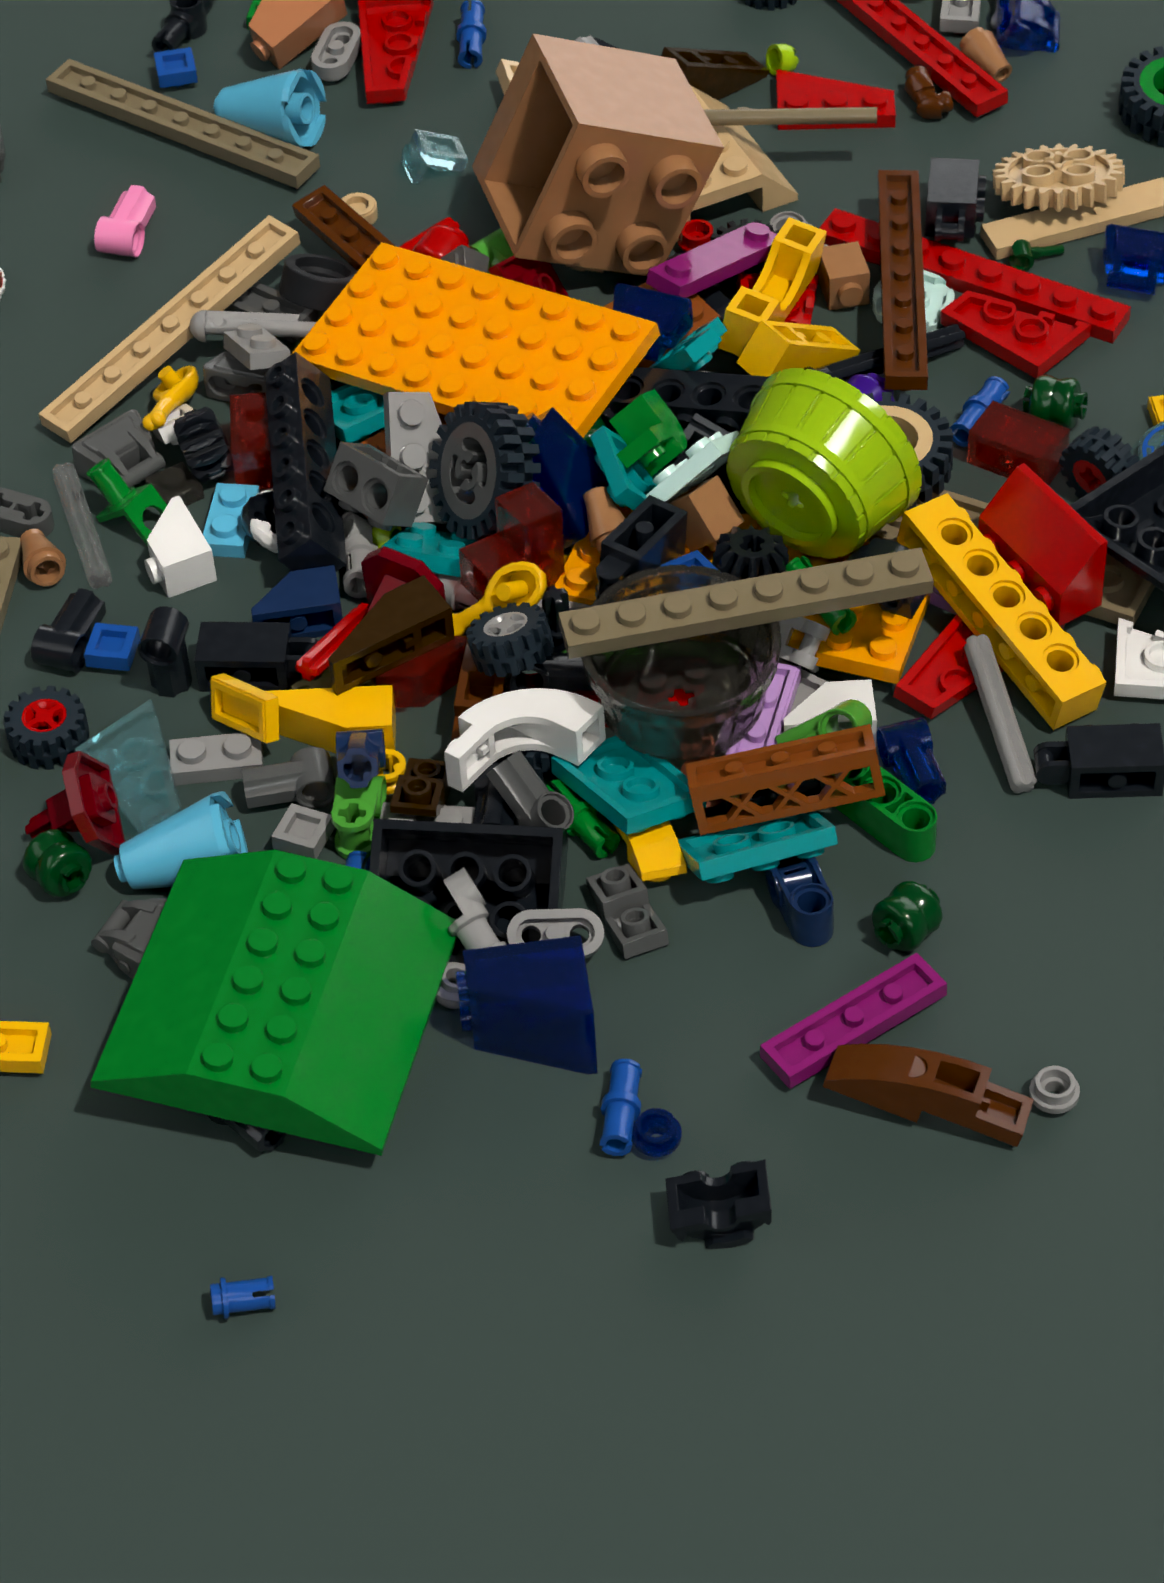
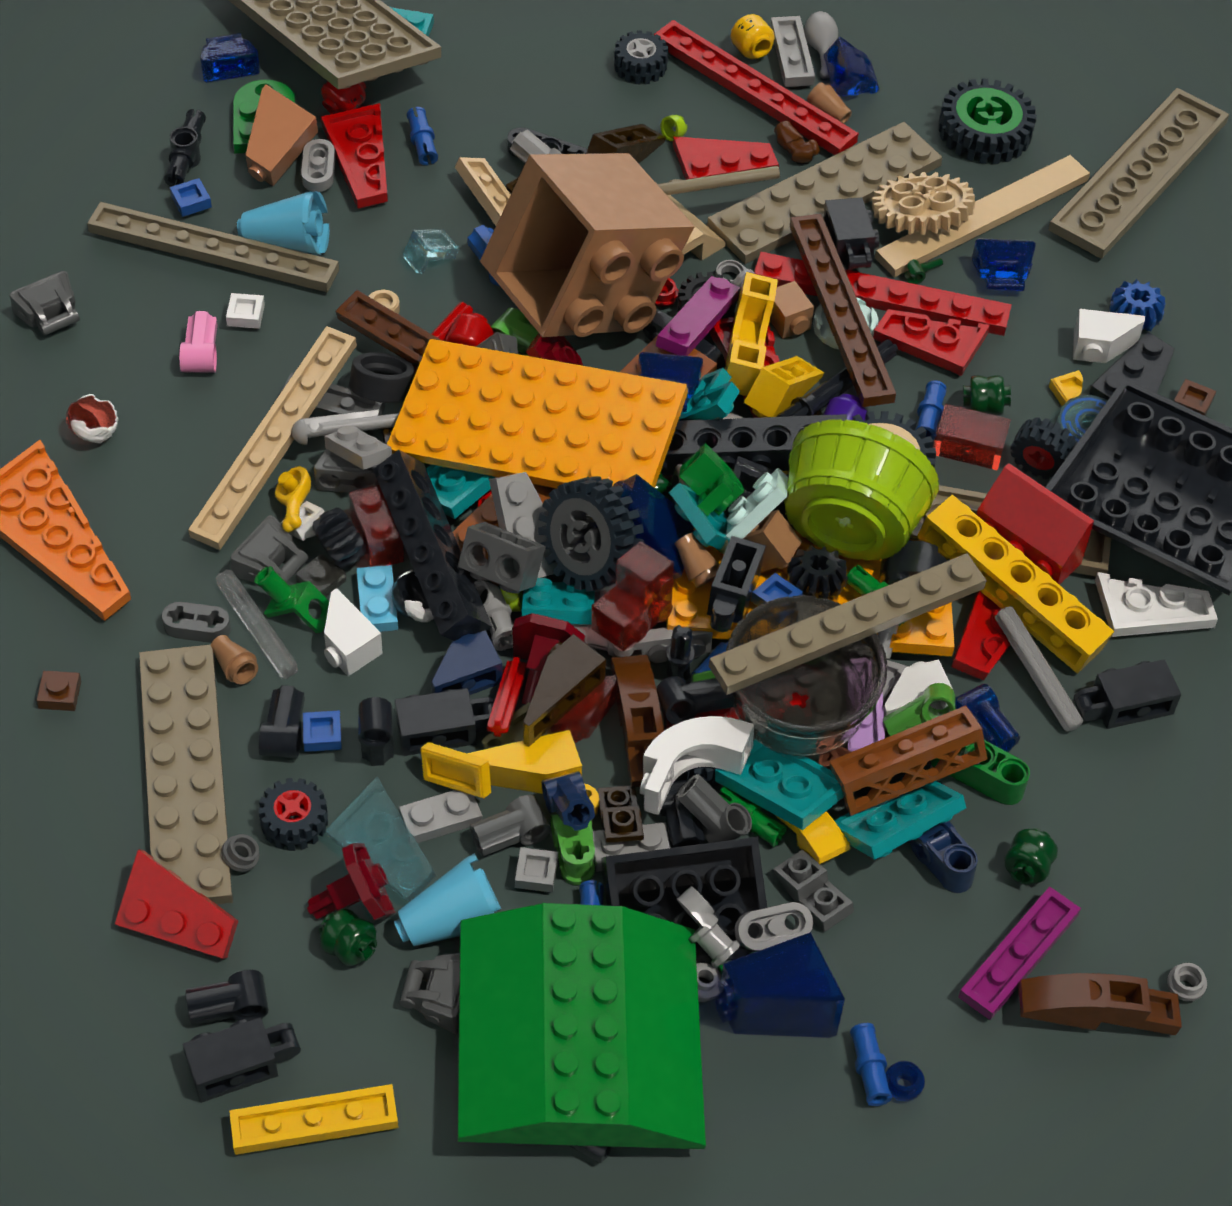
camera: 20 degrees left, 5 degrees up
(192, 194) = (245, 310): none -> white plate
(510, 584) = (645, 638): yellow piece -> none
(510, 639) = (660, 679): black wheel -> none
(720, 1208) = (981, 1135): black cylinder -> none
(849, 174) = (764, 219): none -> dark tan plate

